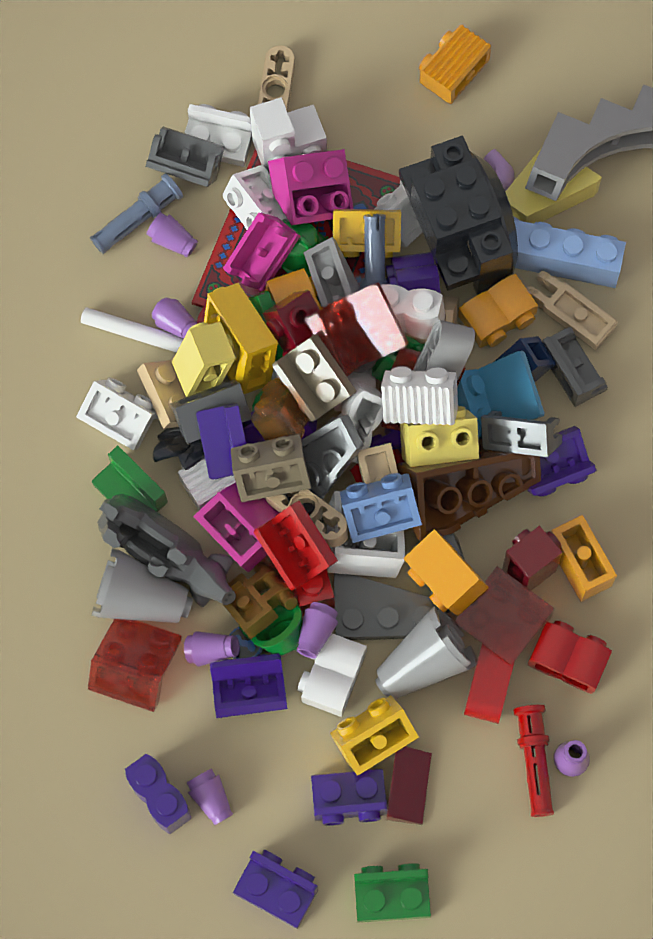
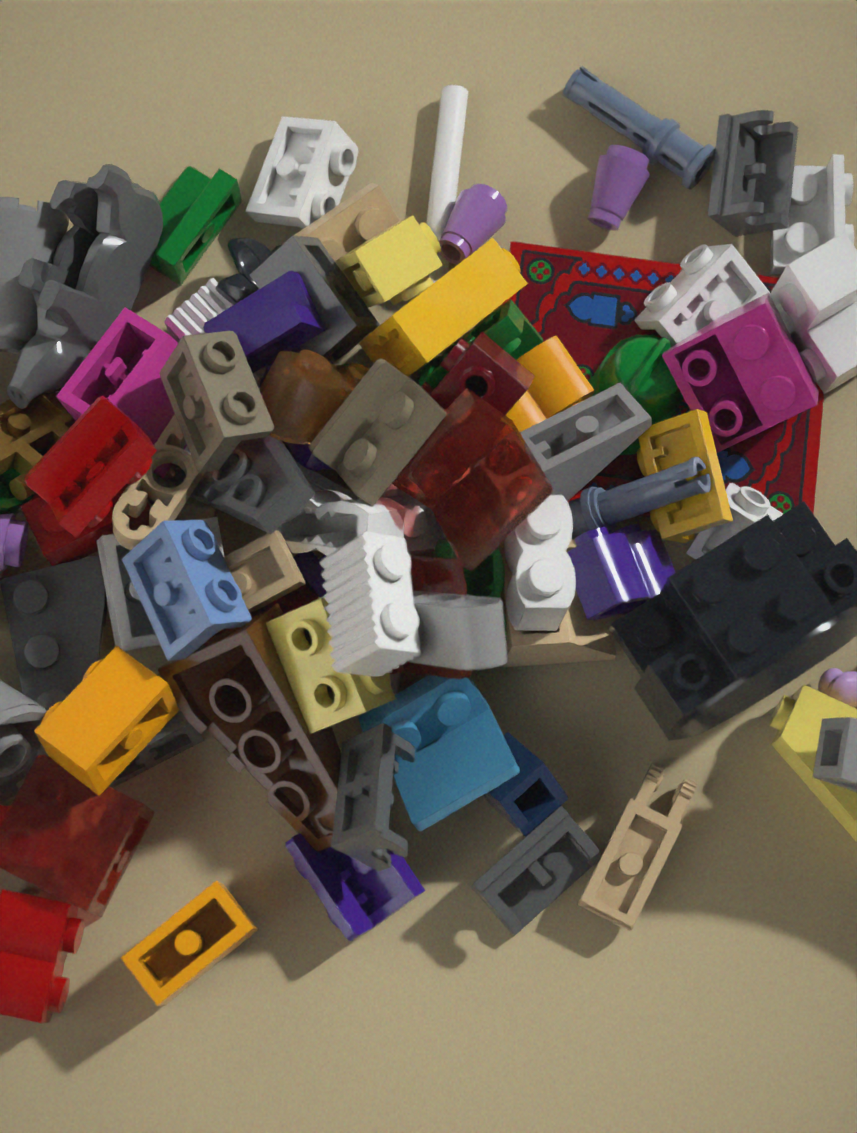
camera: 75 degrees right, 5 degrees up
(261, 251) = (607, 316): dark pink hinge -> none
(499, 311) = (604, 725): light orange brick -> none
(533, 557) = (168, 858): dark red brick -> none
(569, 253) = (737, 816): light blue brick -> none

